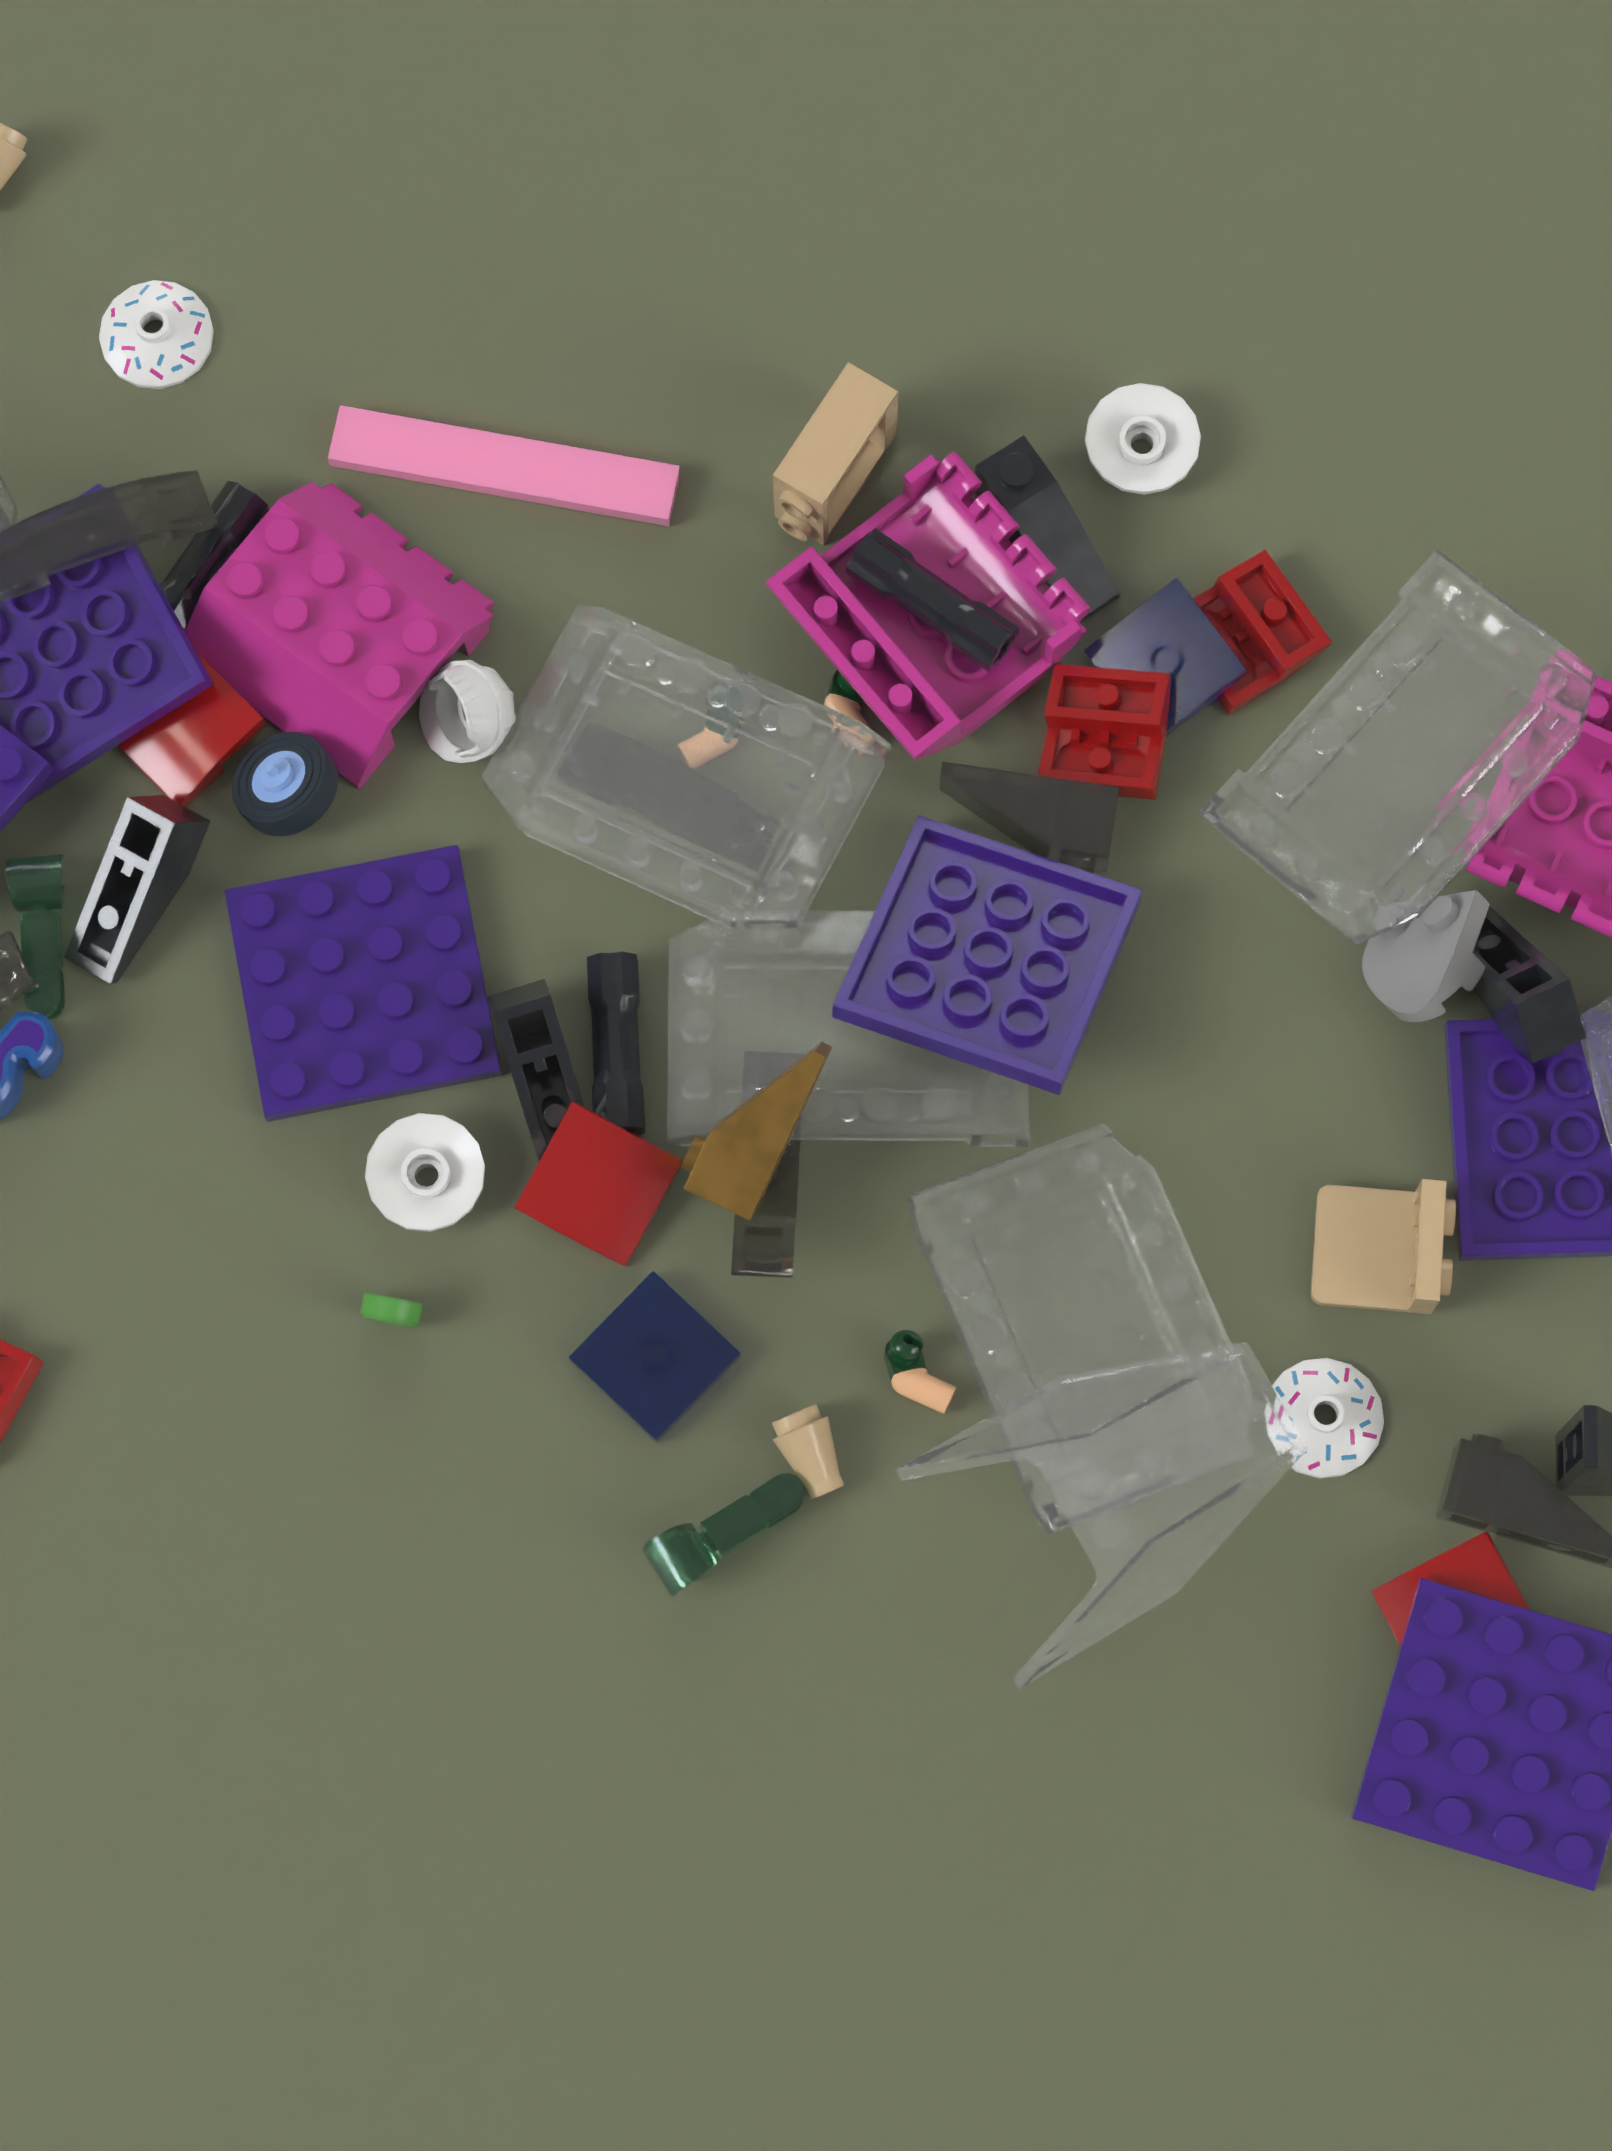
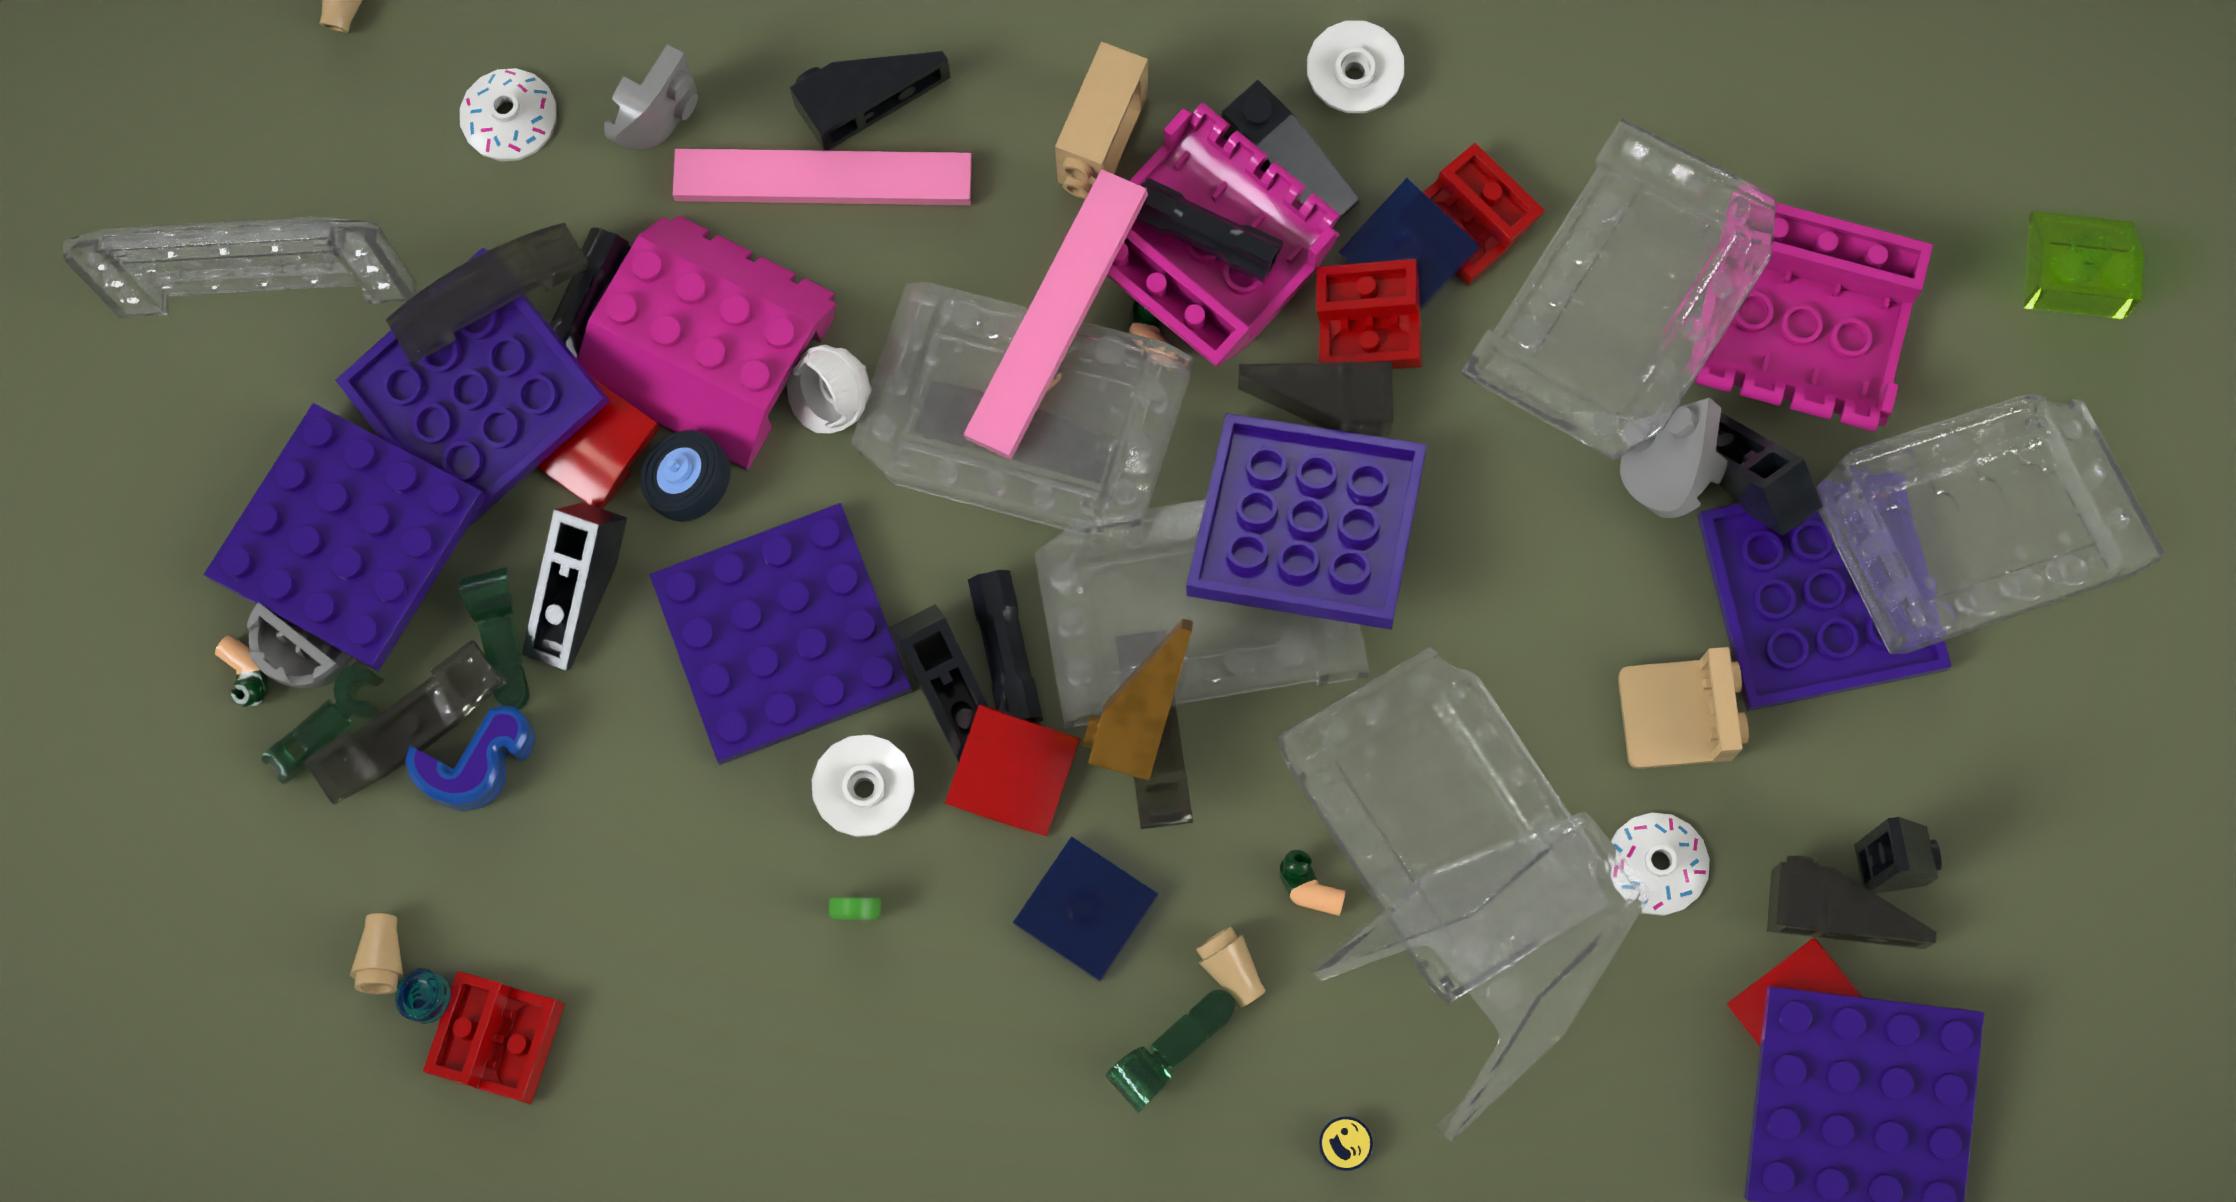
camera: 10 degrees left, 0 degrees up
(323, 355) = (656, 106): none -> light grey slope
(561, 375) = (860, 92): none -> black slope
(740, 668) = (1055, 314): none -> bright pink tile
(903, 1674) = (1345, 1144): none -> light yellow tile

